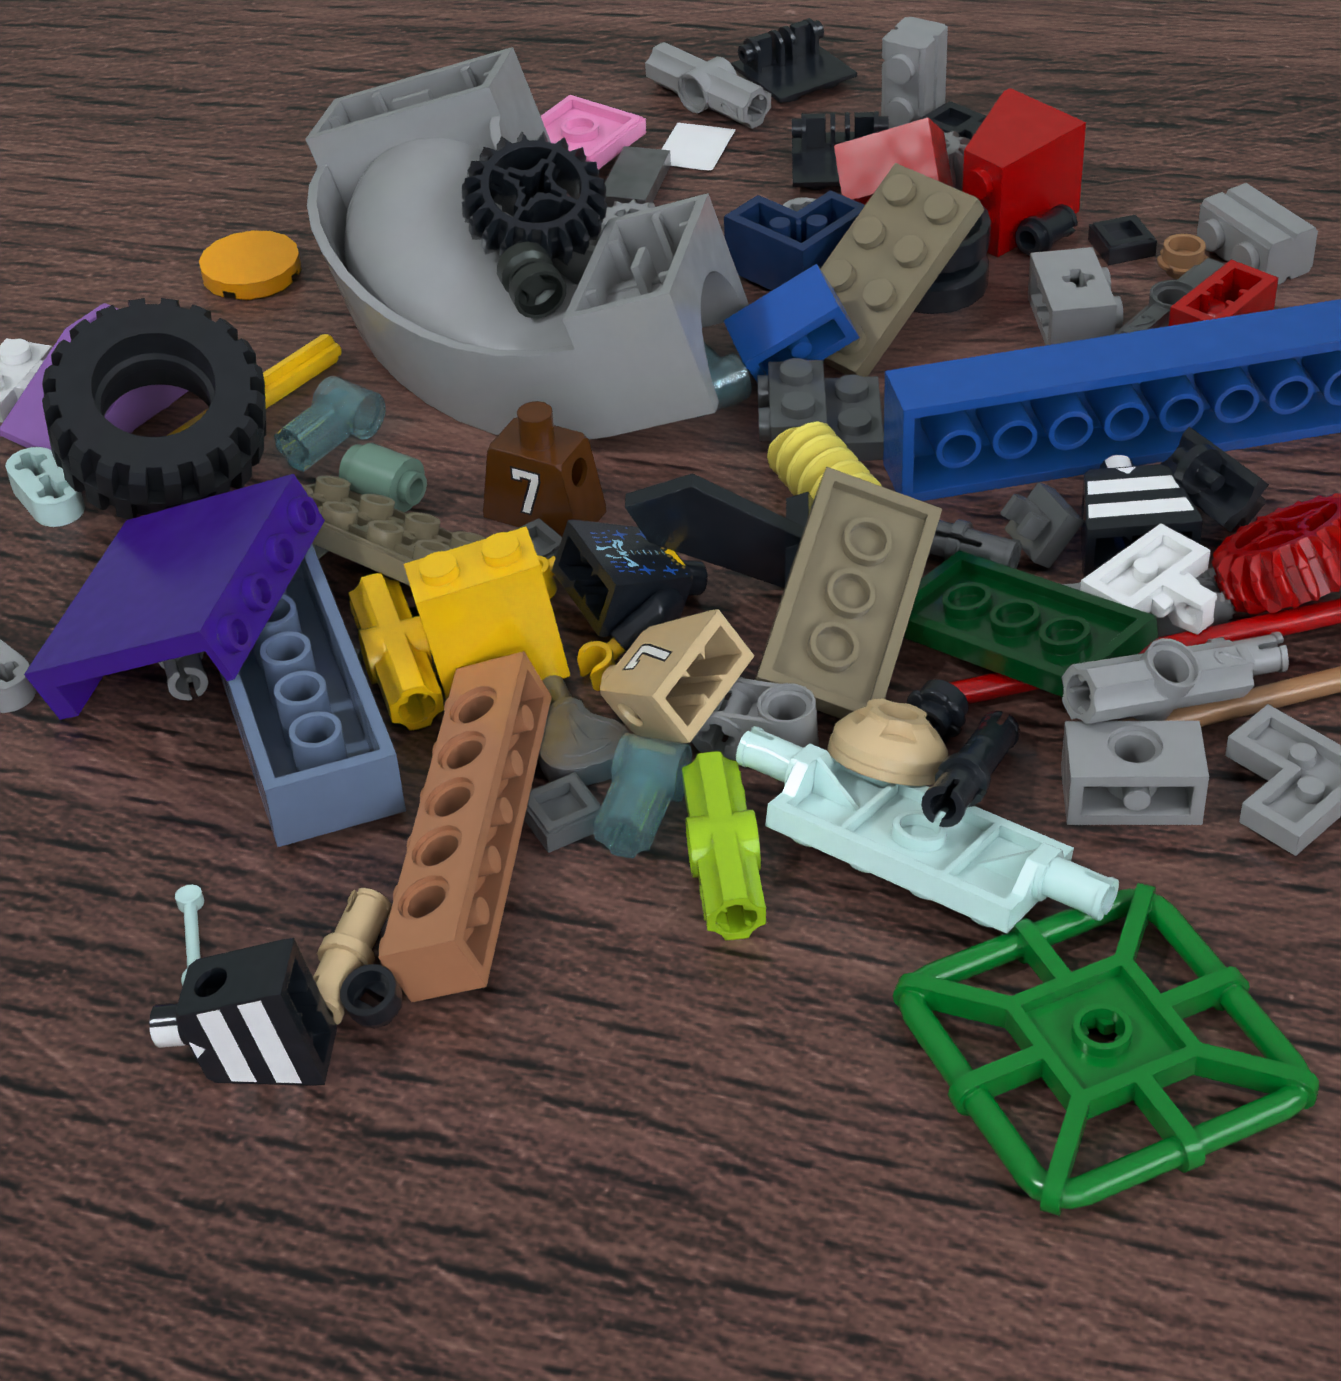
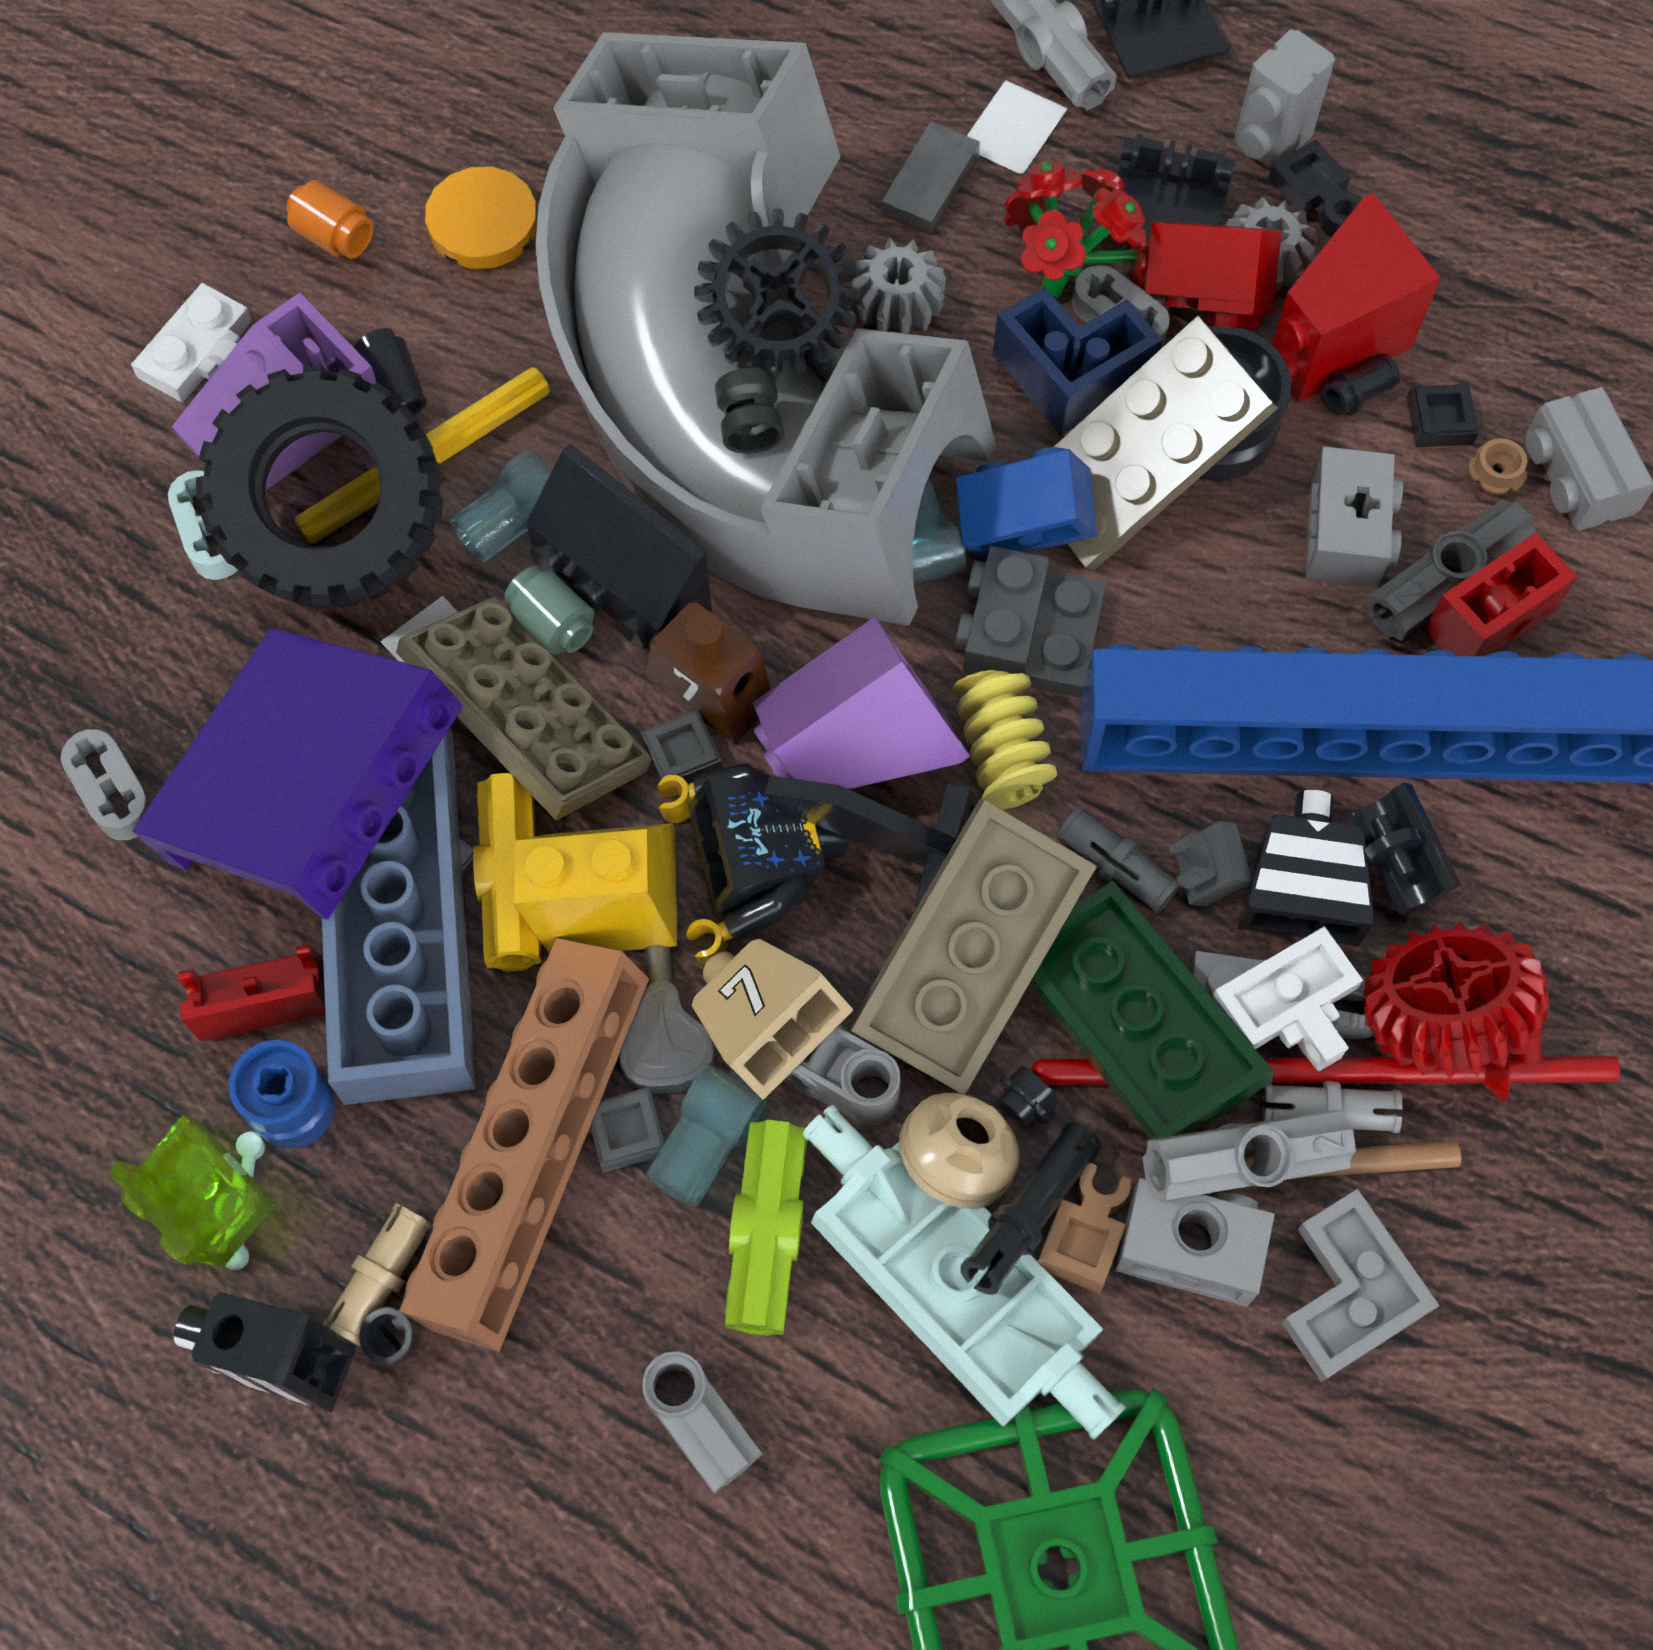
camera: 10 degrees right, 25 degrees up
(113, 280) = (329, 220): none -> orange brick
(145, 924) = (194, 1195): none -> clear neon green bracket
(171, 783) = (254, 995): none -> red hinge
(217, 832) = (282, 1094): none -> blue wheel
(433, 408) = (615, 549): none -> black slope
(594, 127) = (888, 87): bright pink plate -> none
(689, 987) = (702, 1425): none -> light grey piece
(701, 437) = (855, 717): none -> medium lavender slope
(768, 161) = (1060, 246): none -> red plant
(1031, 789) = (1084, 1236): none -> medium nougat plate

